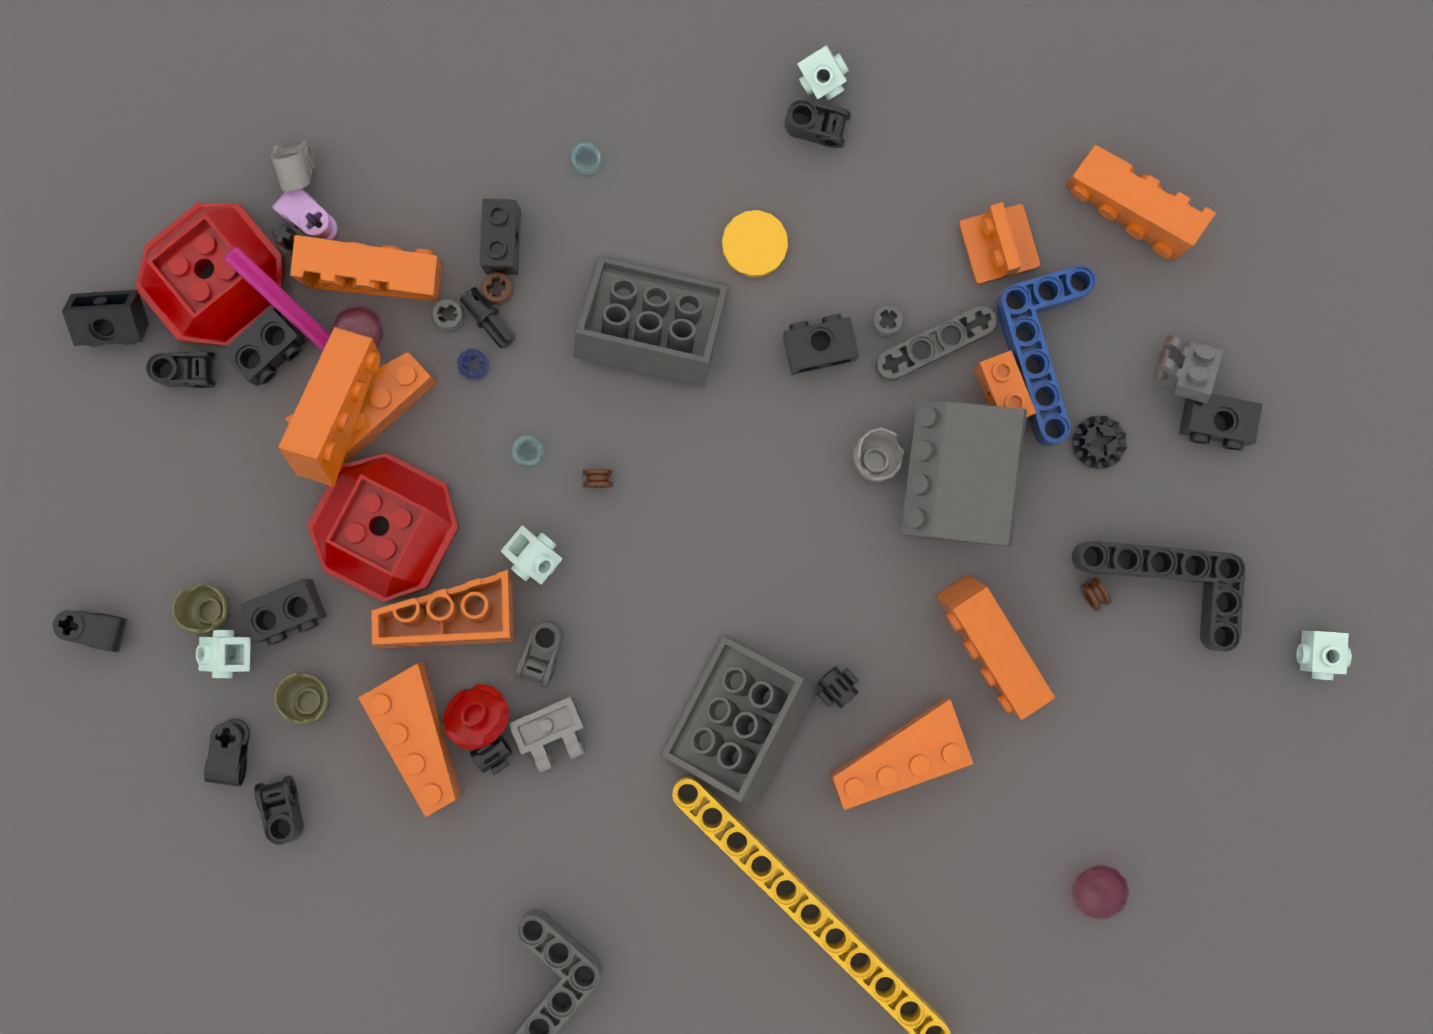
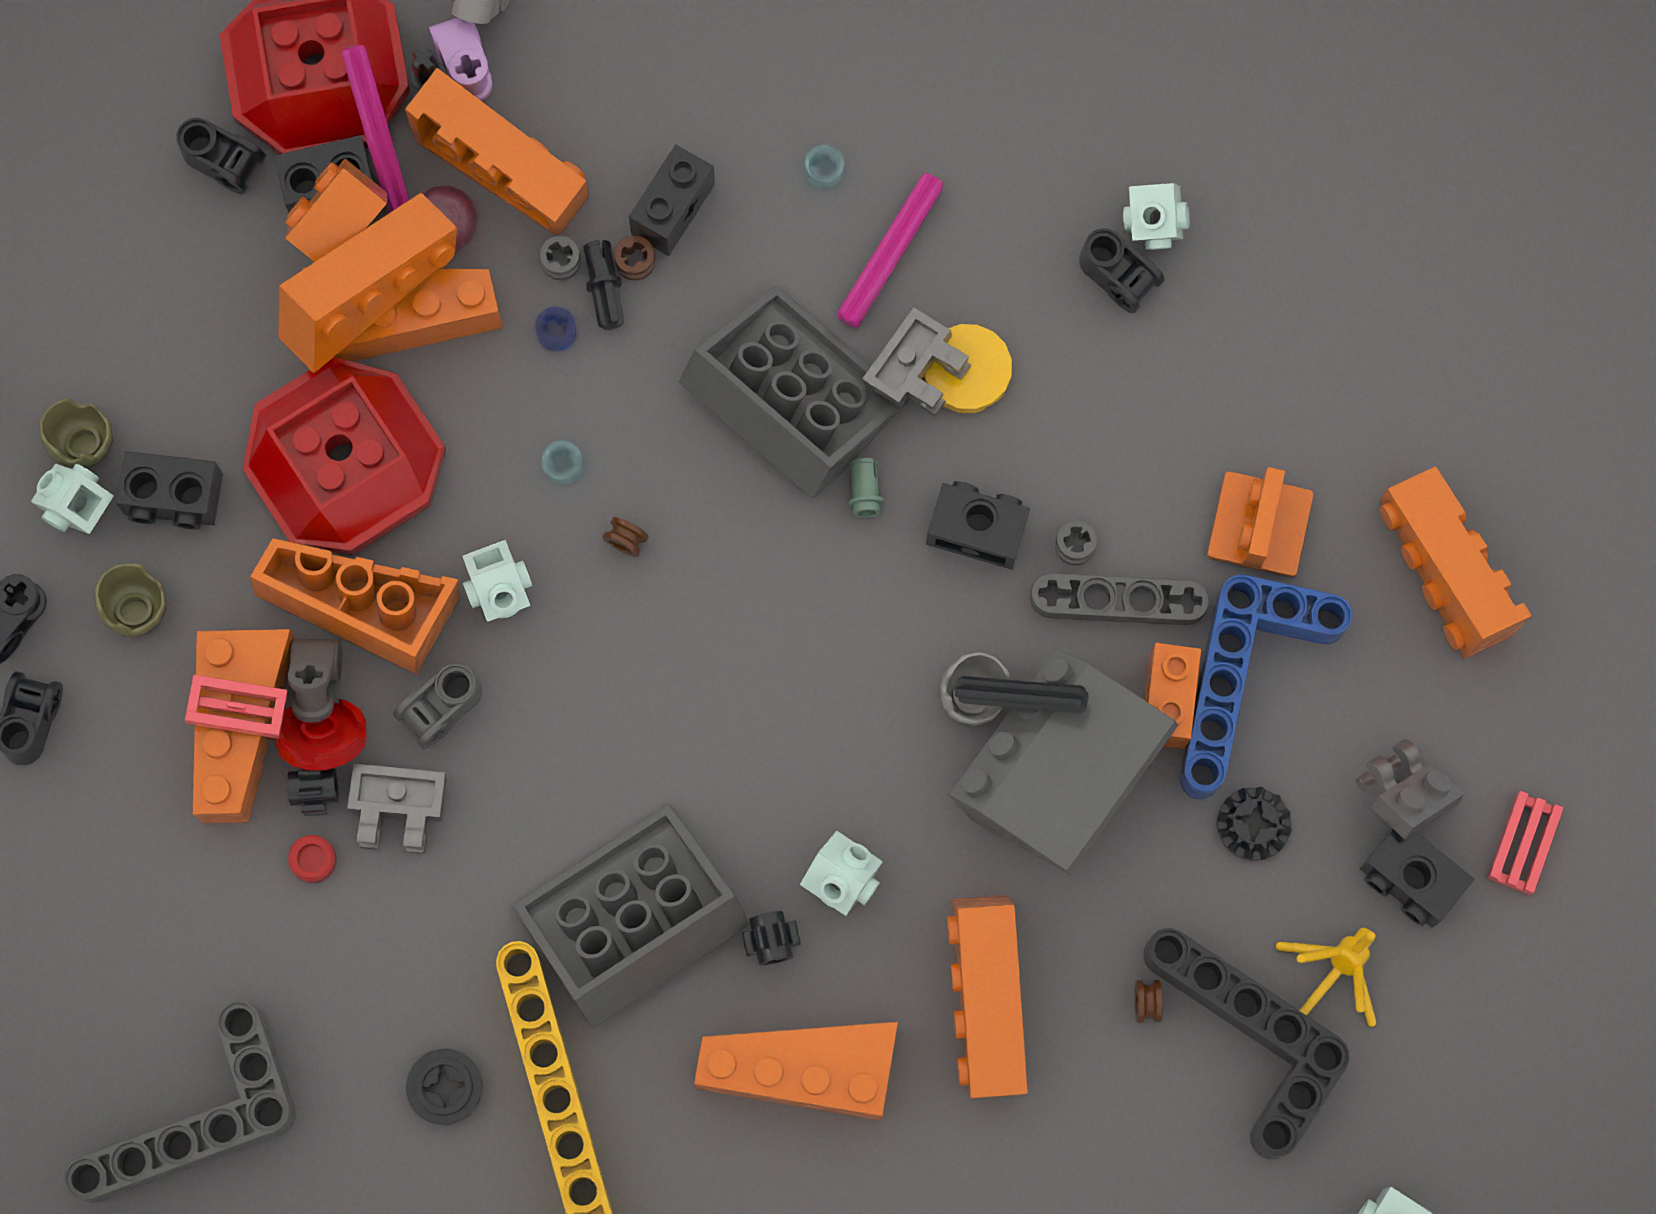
camera: 25 degrees right, 10 degrees down
(88, 312) = (190, 49): black brick -> none
(285, 372) = (337, 212): none -> orange brick
(384, 745) = (232, 724): none -> coral tile
(450, 682) = (314, 677): none -> dark grey piece
(516, 796) = (312, 859): none -> red tile
(661, 191) = (890, 250): none -> dark pink axle
(683, 910) = (427, 1073): none -> black gear
(714, 259) = (907, 359): none -> flat silver plate
(733, 360) = (865, 488): none -> sand green pin
(860, 621) = (842, 874): none -> light aqua brick
(915, 445) = (1022, 694): none -> black axle
(1205, 497) = (1346, 959): none -> yellow plant
(1288, 360) = (1538, 807): none -> coral tile

